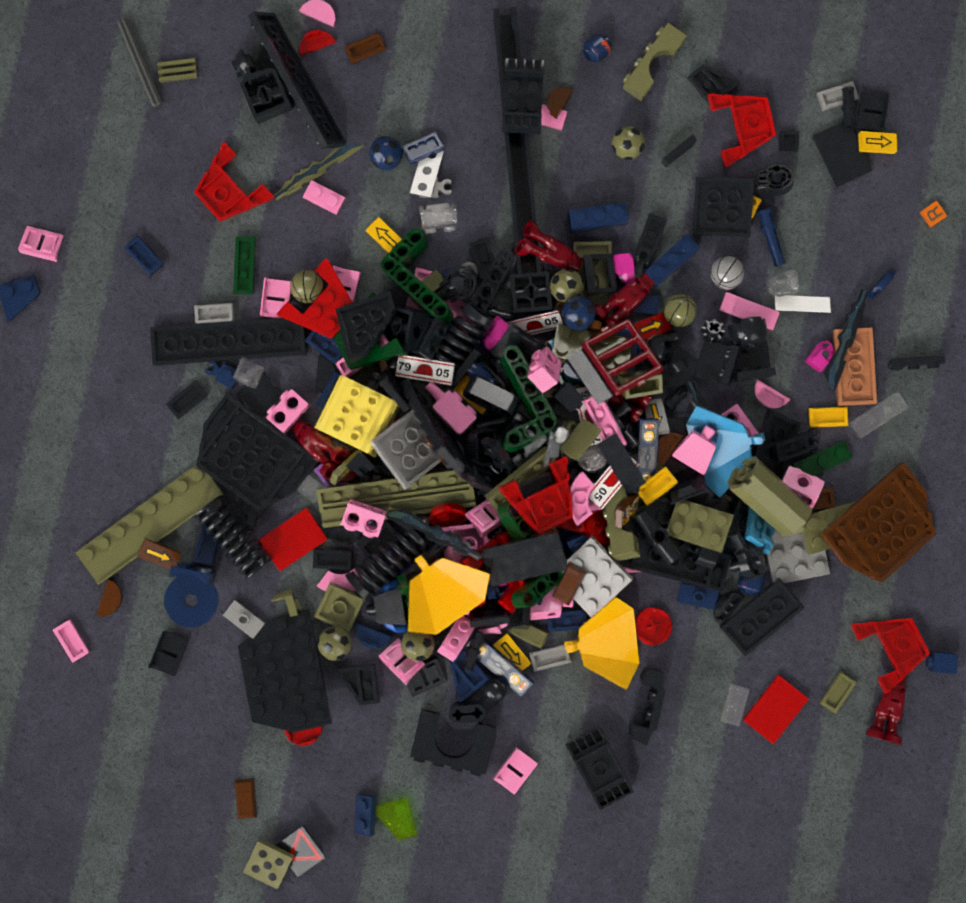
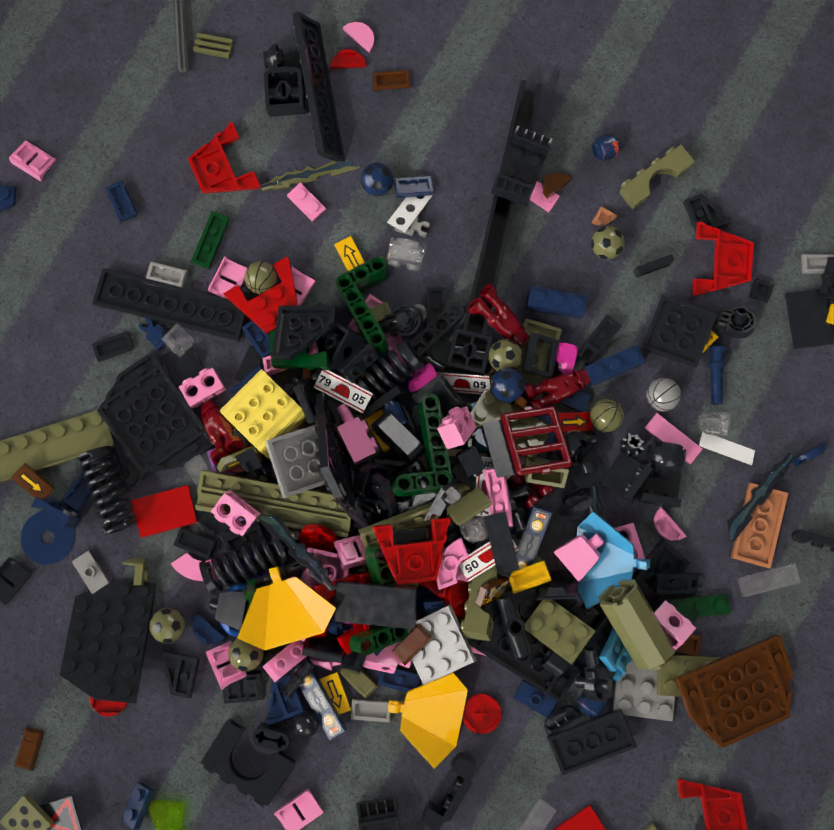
camera: 25 degrees right, 5 degrees down
(339, 606) = (184, 591): olive tile -> none
(616, 117) = (604, 217): none -> nougat tile
(656, 410) = (553, 503): light grey tile -> none
(666, 446) = (551, 540): reddish brown tile -> none
(820, 356) = (729, 504): dark pink rock -> none
(828, 417) = (718, 565): yellow tile -> none

